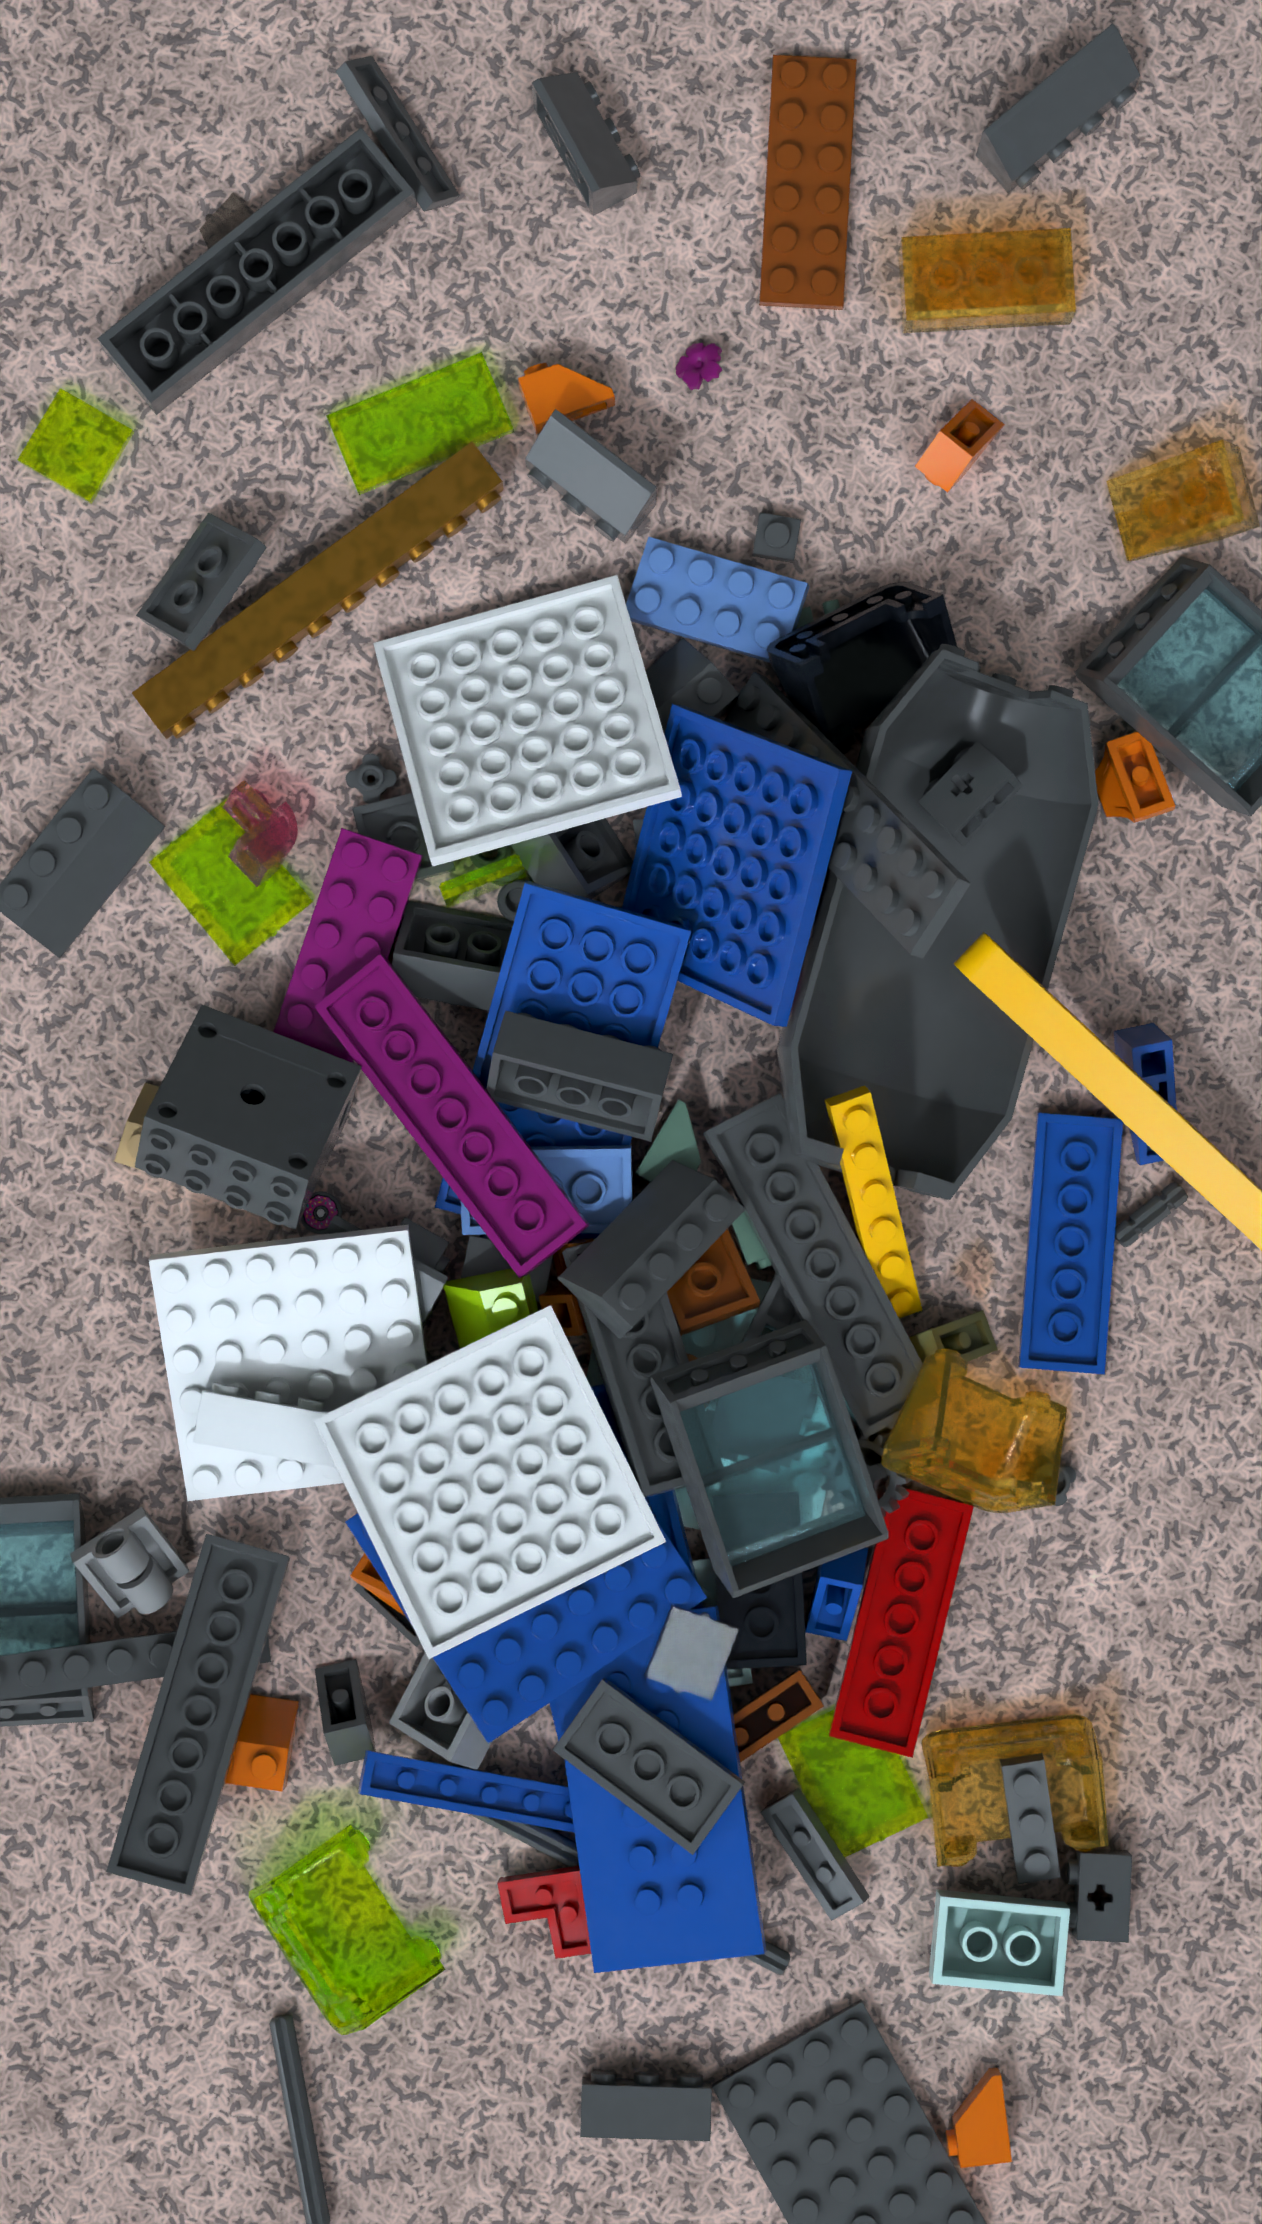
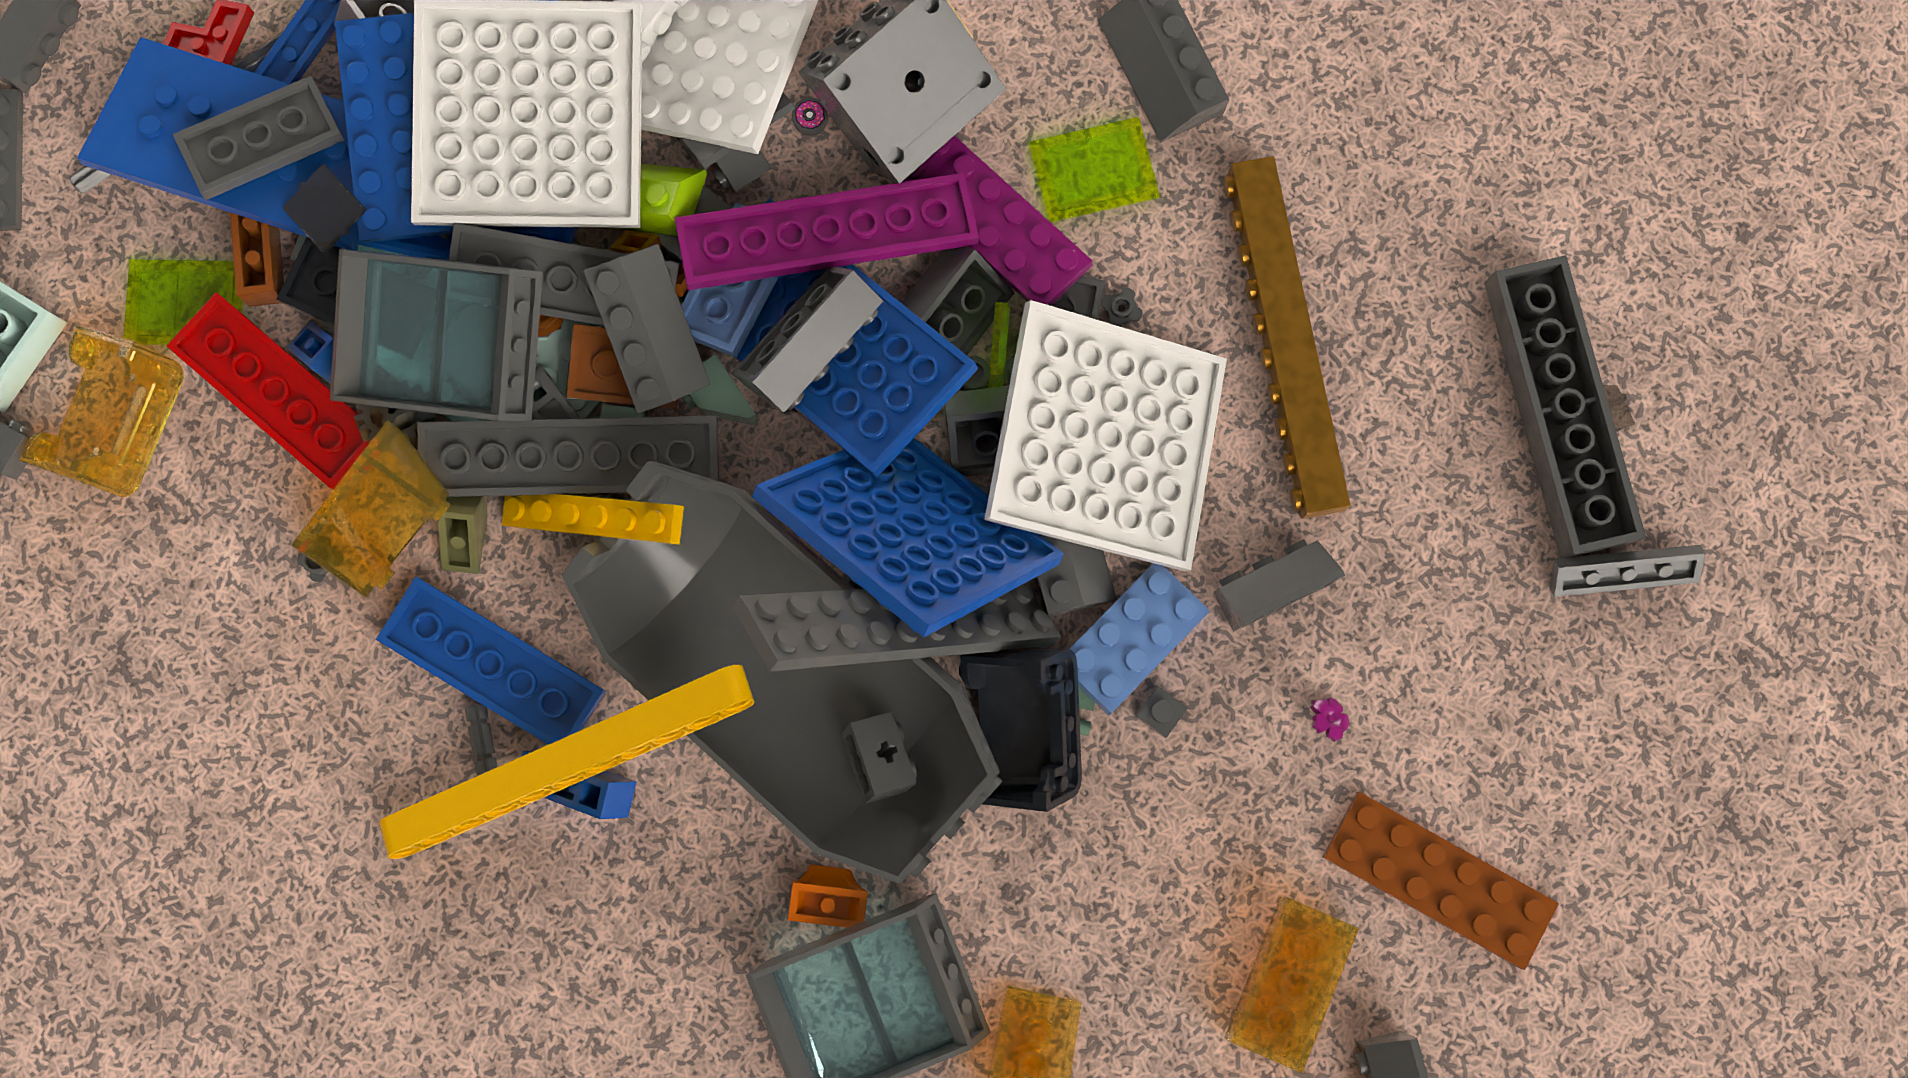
camera: 115 degrees right, 5 degrees down
(75, 446) = (1487, 212): clear neon green tile -> none
(201, 581) = (1336, 249): dark grey plate -> none
(268, 833) = (1111, 207): brick -> none
(419, 423) = (1384, 479): clear neon green tile -> none
(563, 390) = (1356, 595): orange slope -> none
(585, 140) = (1556, 714): dark grey slope -> none
(815, 1854) = (140, 243): dark grey plate -> none
(958, 445) = (1166, 894): orange slope -> none
(1030, 1818) = (75, 414): dark grey plate -> none

